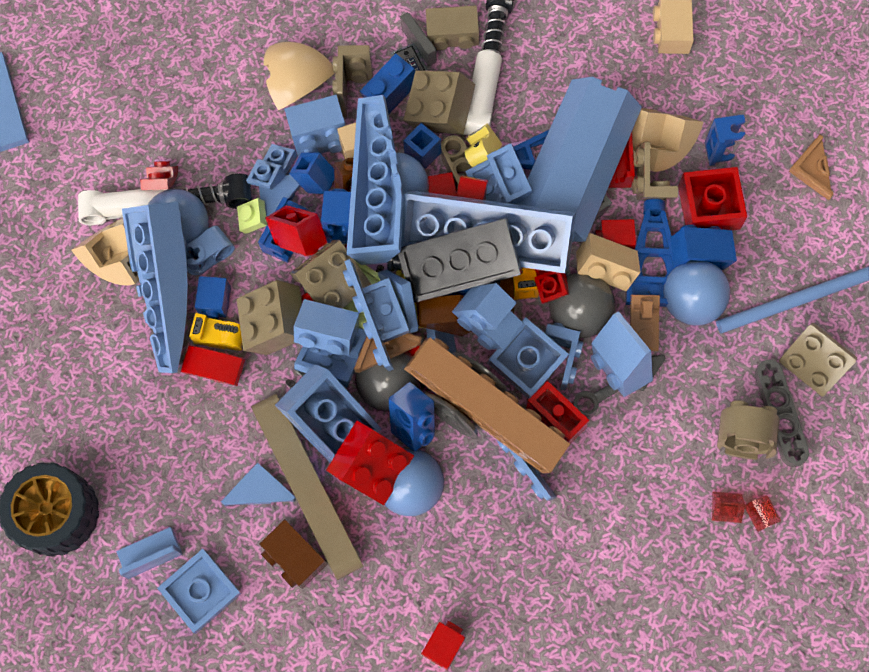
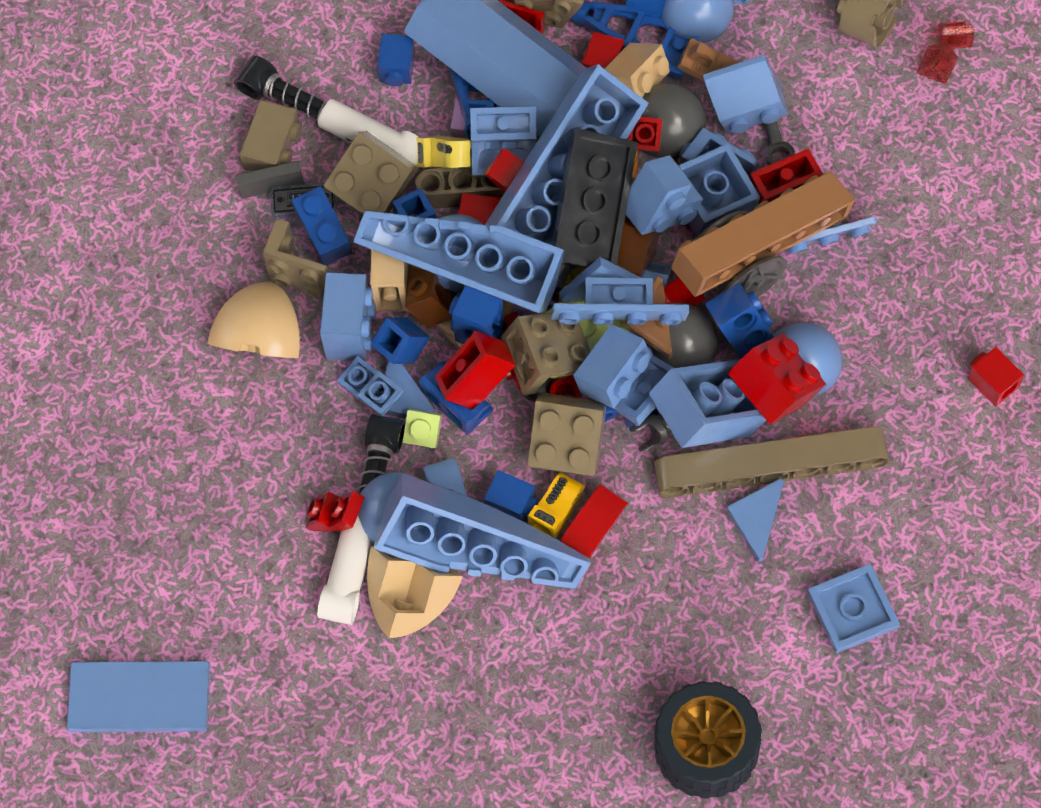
camera: 70 degrees left, 5 degrees down
(148, 553) = (791, 652): medium blue panel -> none
(292, 554) = (846, 497): reddish brown brick -> none
(552, 87) = (396, 59): none -> blue brick

